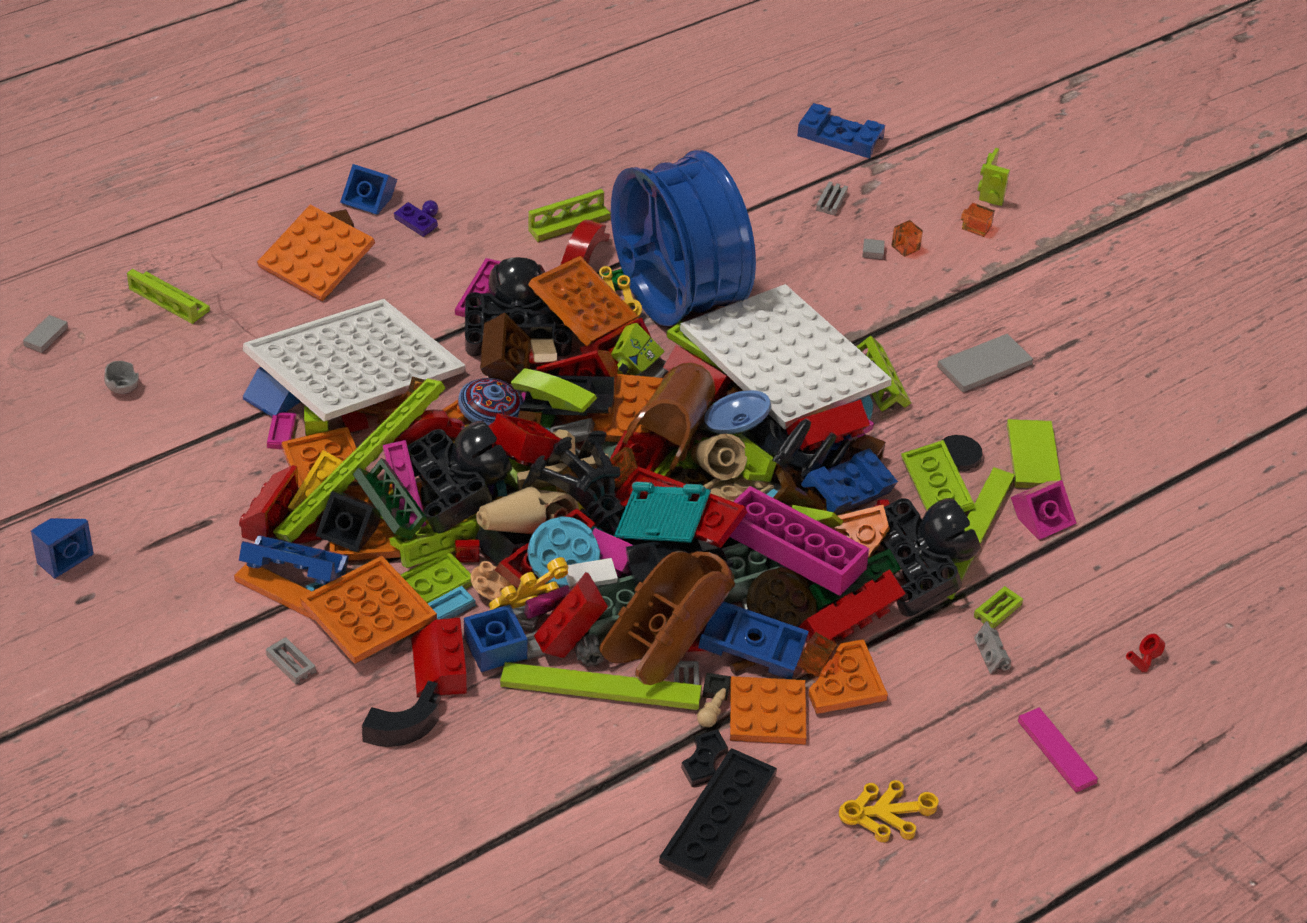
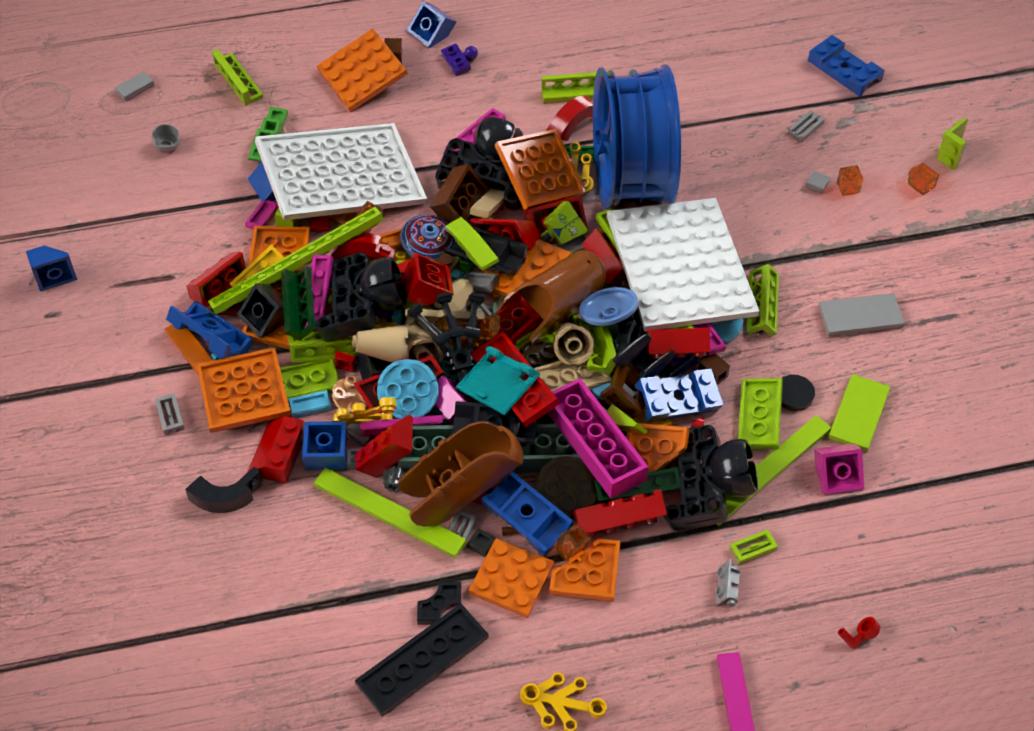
camera: 25 degrees right, 10 degrees up
(239, 333) = (270, 126): none -> bright green slope
(601, 572) = (422, 414): white tile -> none
(708, 715) = (458, 567): tan bar -> none

